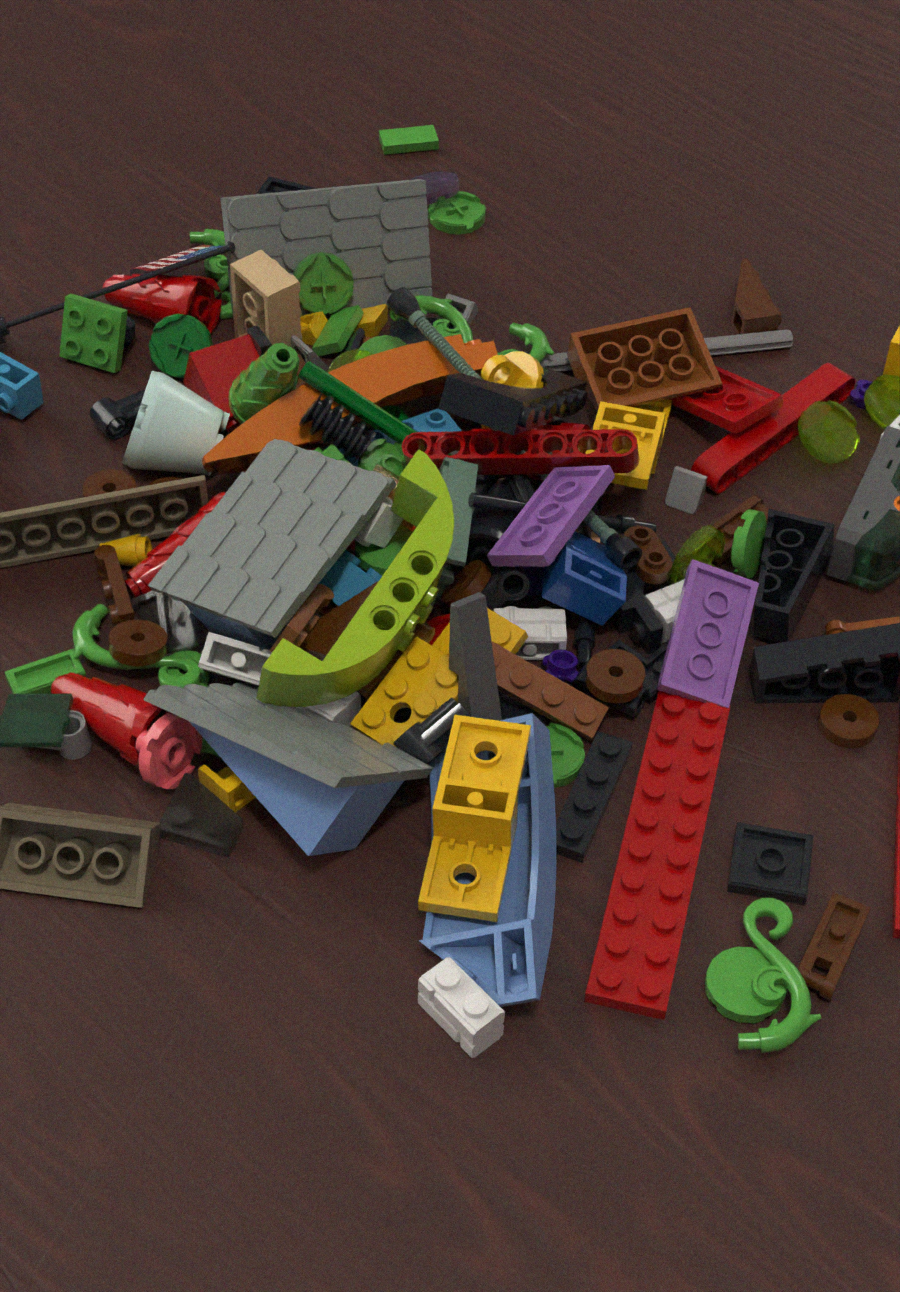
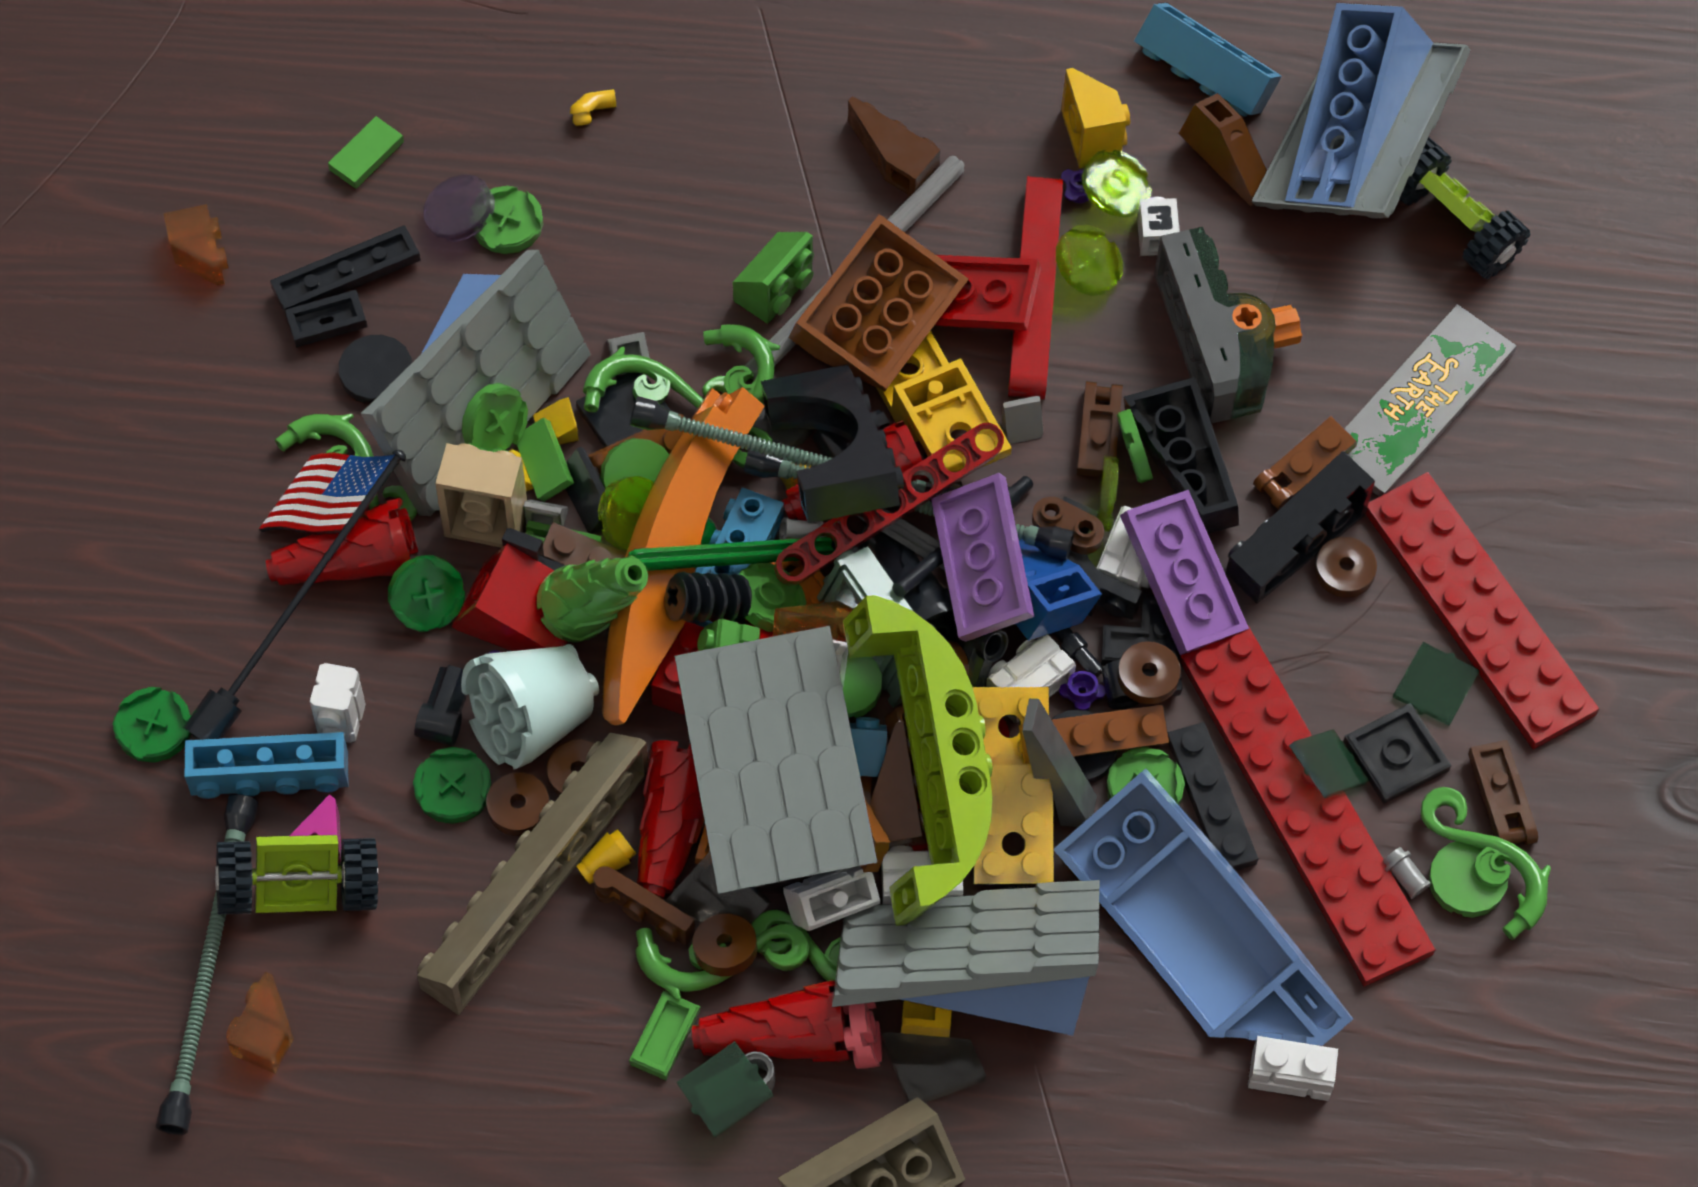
camera: 40 degrees left, 15 degrees up
(58, 362) = (337, 701): none -> white brick
(78, 456) = (452, 785): none -> green tile
(95, 333) = (330, 631): bright green plate -> none
(259, 122) = (193, 242): none -> clear orange slope
(321, 176) = (346, 269): none -> black plate
(428, 738) = (1065, 856): black piece -> none
(475, 818) = (1169, 898): yellow bracket -> none
(514, 369) = (800, 418): yellow tile -> none
(575, 186) = (590, 102): none -> yellow arm
(592, 312) = (775, 275): none -> bright green slope
(695, 943) = (1406, 872): none -> light grey pin
(702, 827) = (1329, 763): none -> clear green piece
(850, 840) = (1436, 683): none -> clear green piece

